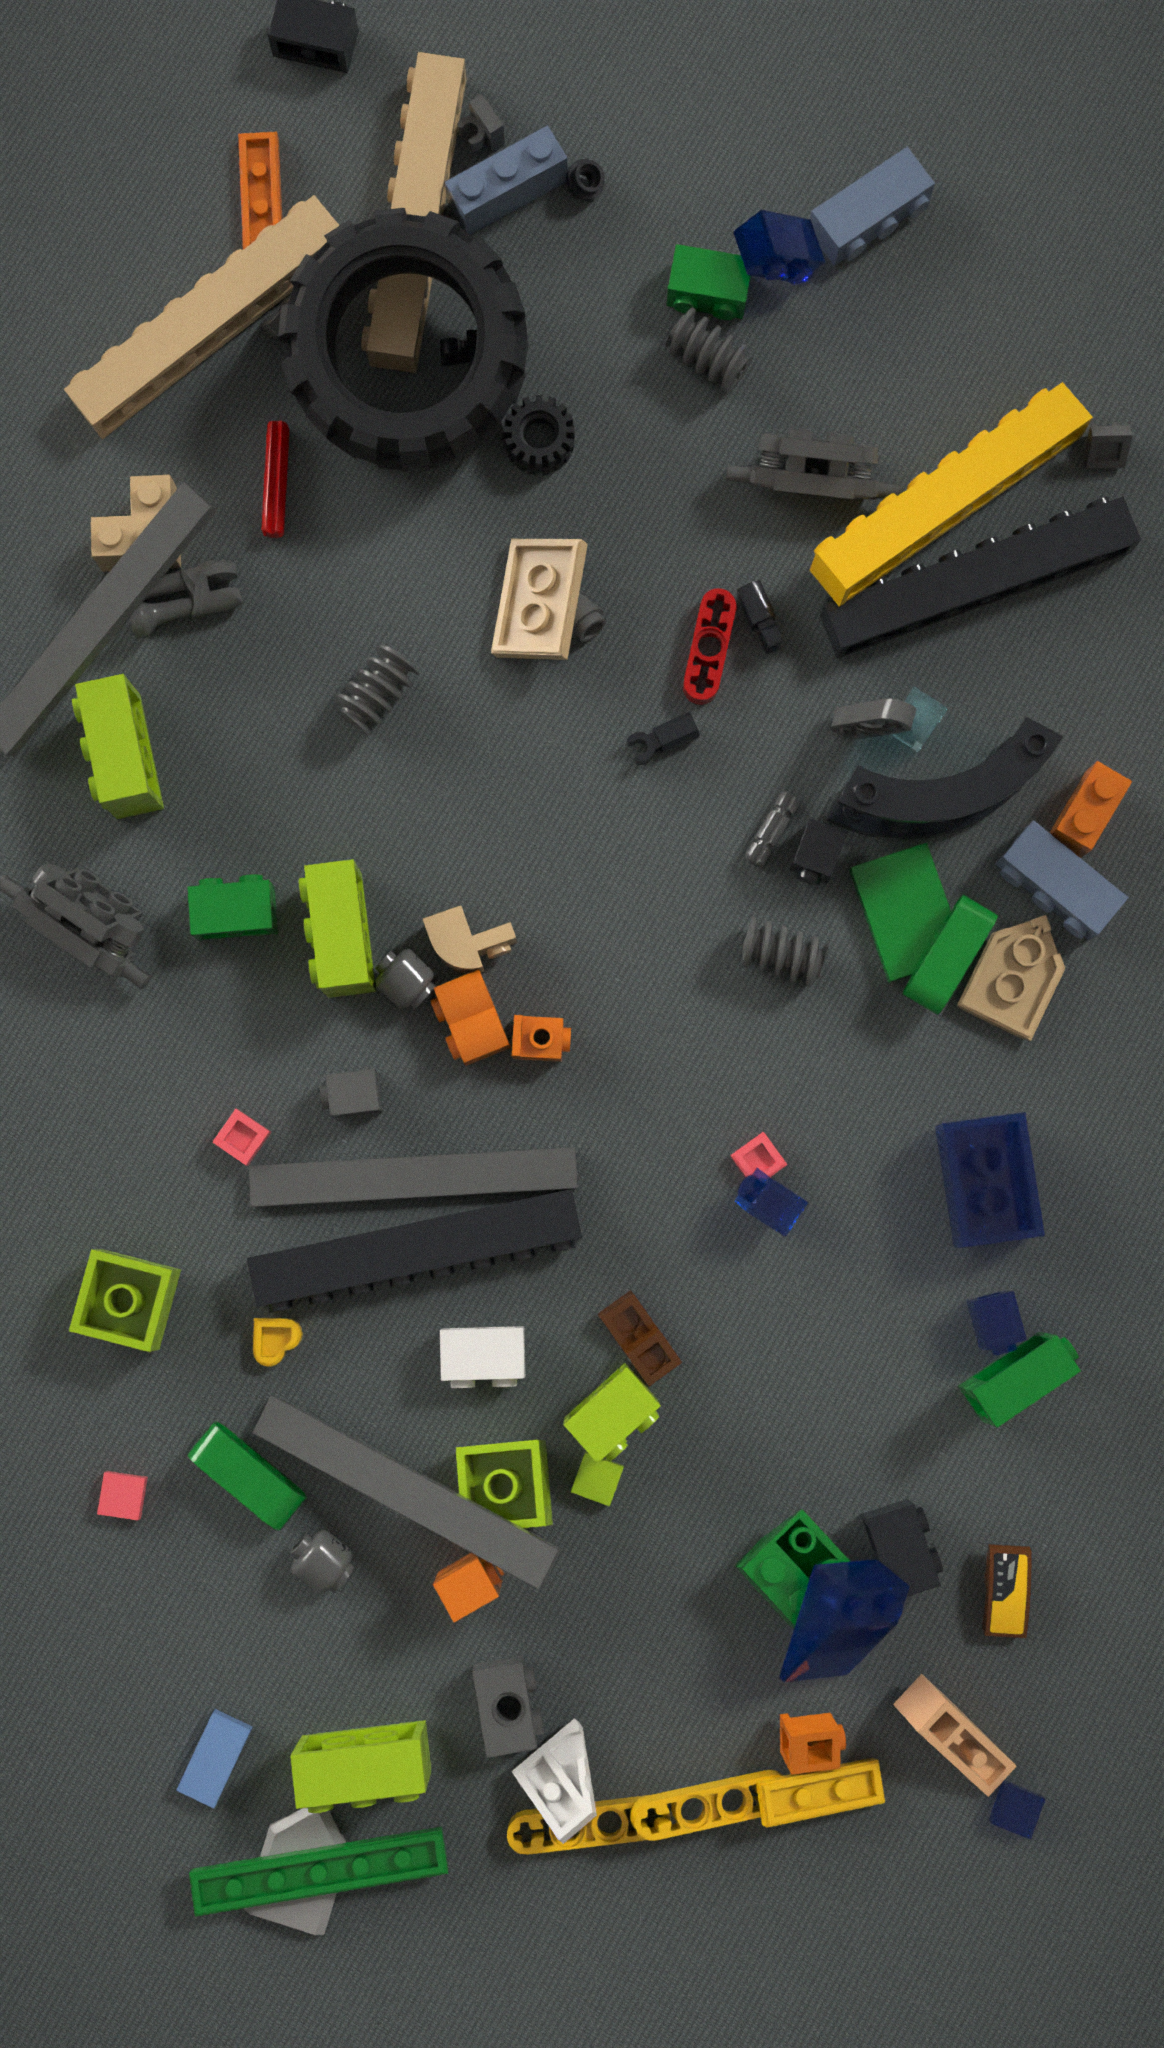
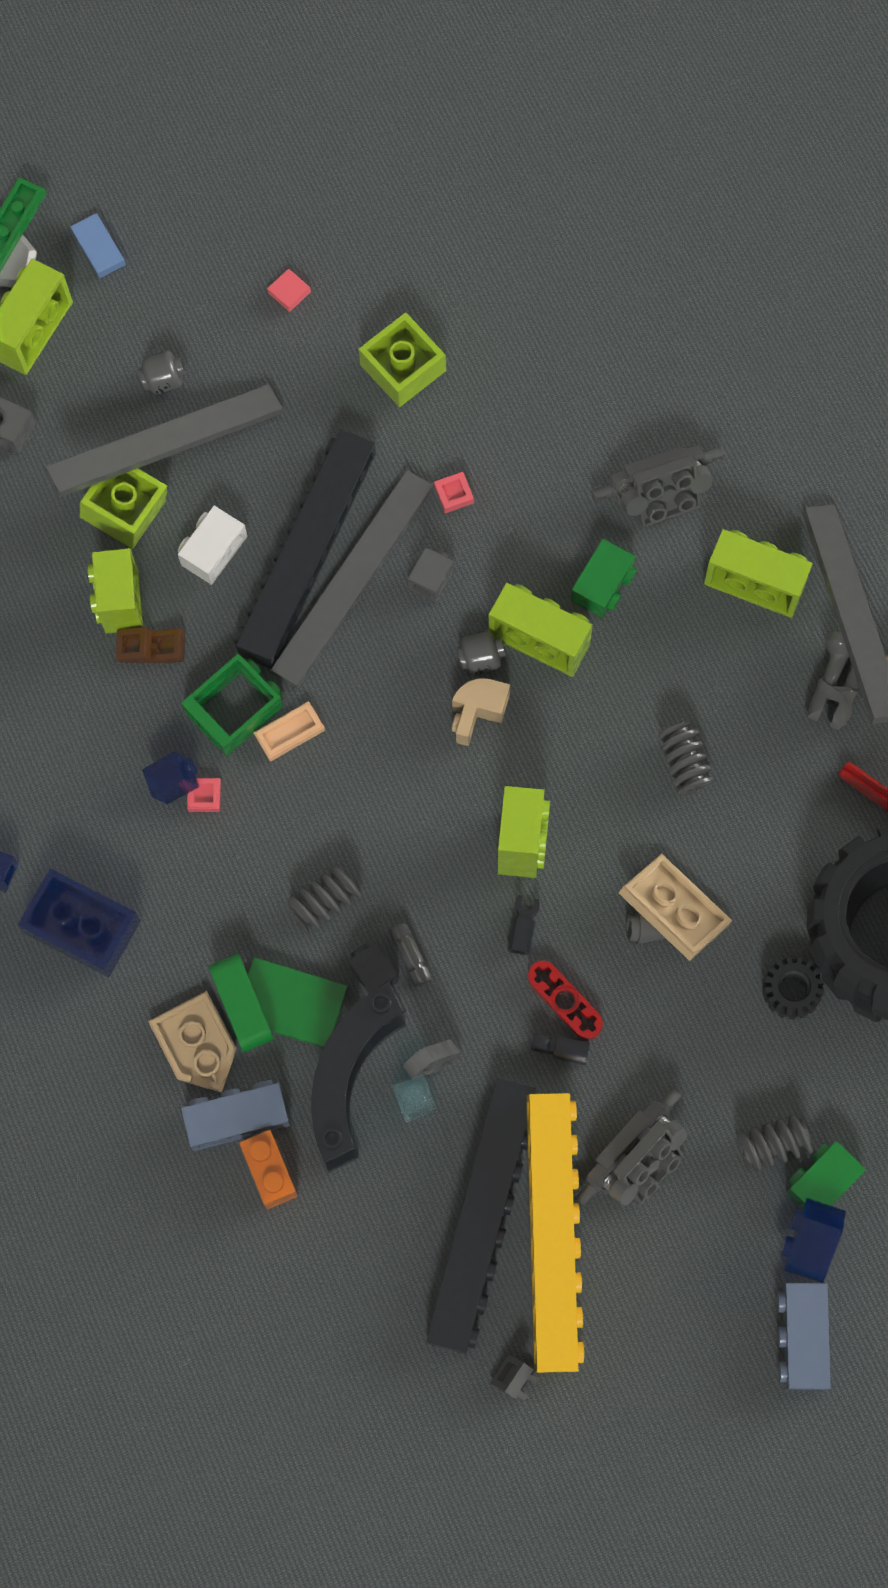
camera: 130 degrees right, 10 degrees down
(247, 1476) = (245, 364): green beam -> none
(273, 1338) = (315, 433): yellow tile -> none
(468, 1585) = (80, 433): orange brick -> none
(471, 1018) = (426, 676): orange brick -> none
(527, 1049) = (382, 722): orange brick -> none
(579, 787) = (523, 832): none -> lime brick
(596, 1480) = (79, 561): lime tile -> none
(628, 1121) = (289, 731): none -> light nougat tile
(685, 1205) = (250, 671): none -> green window

